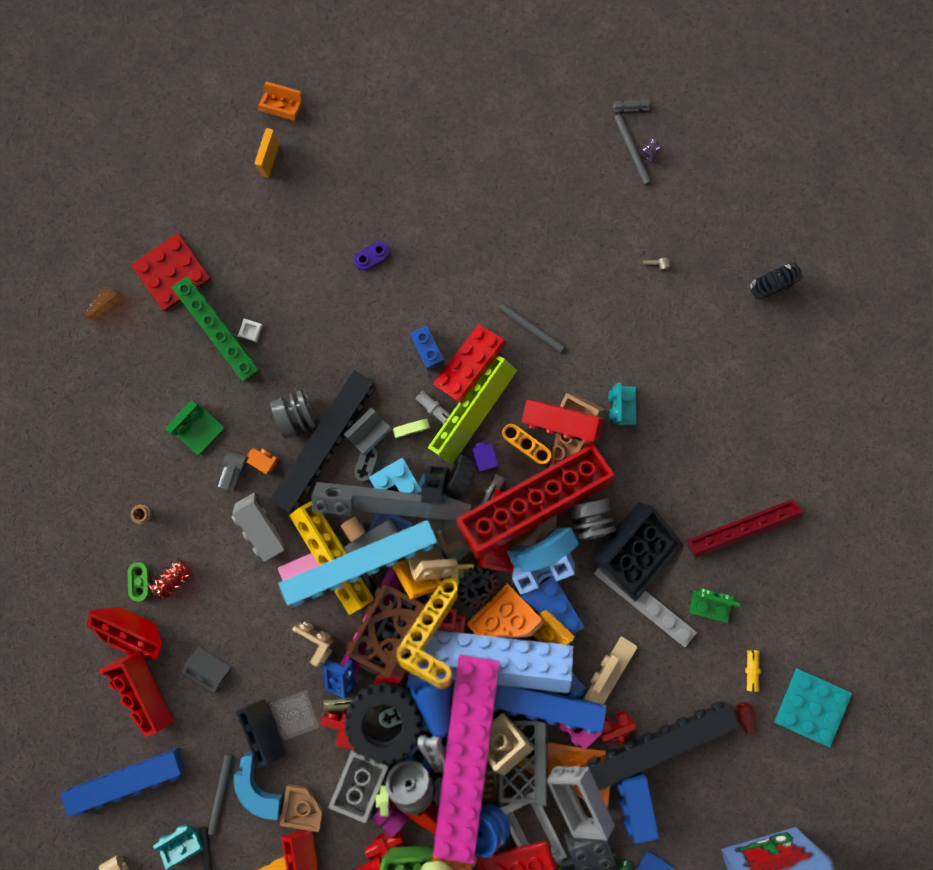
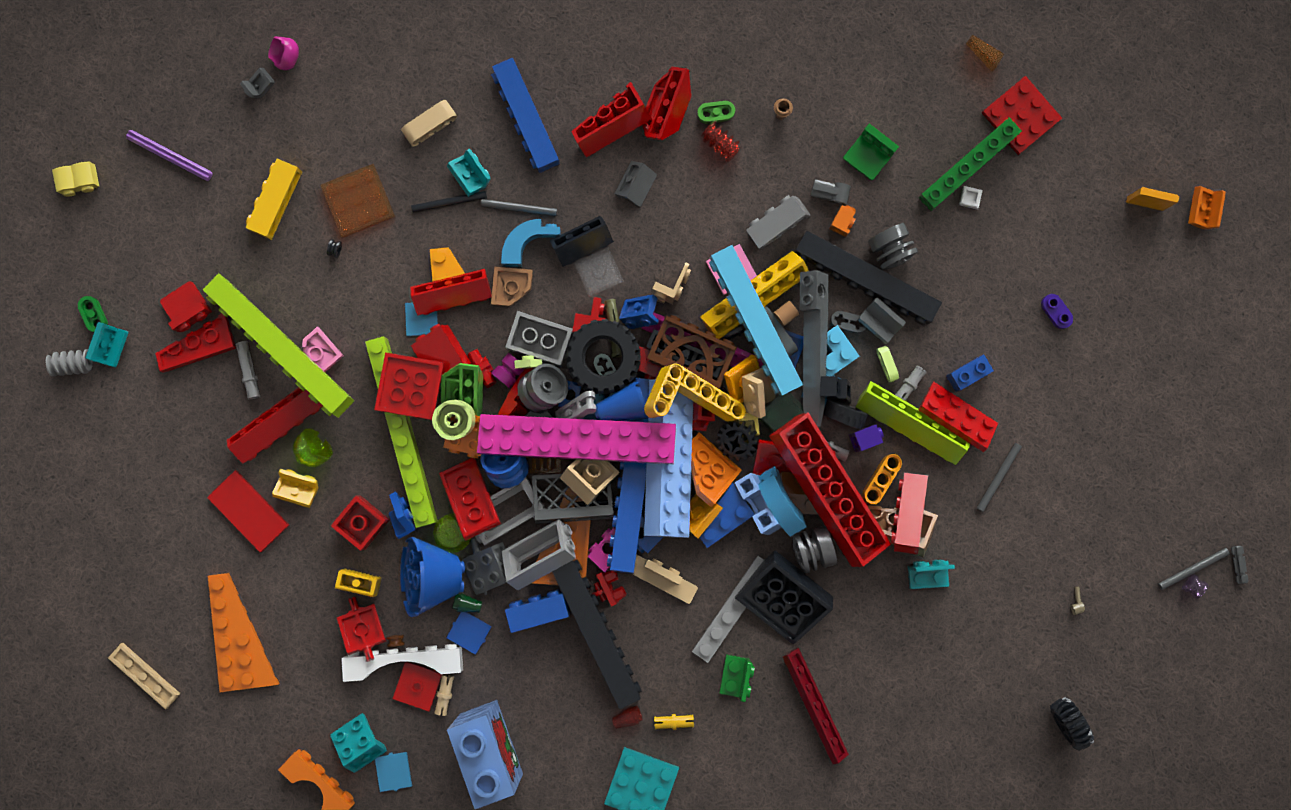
camera: 85 degrees right, 0 degrees up
(450, 539) = (784, 409): dark brown panel -> none

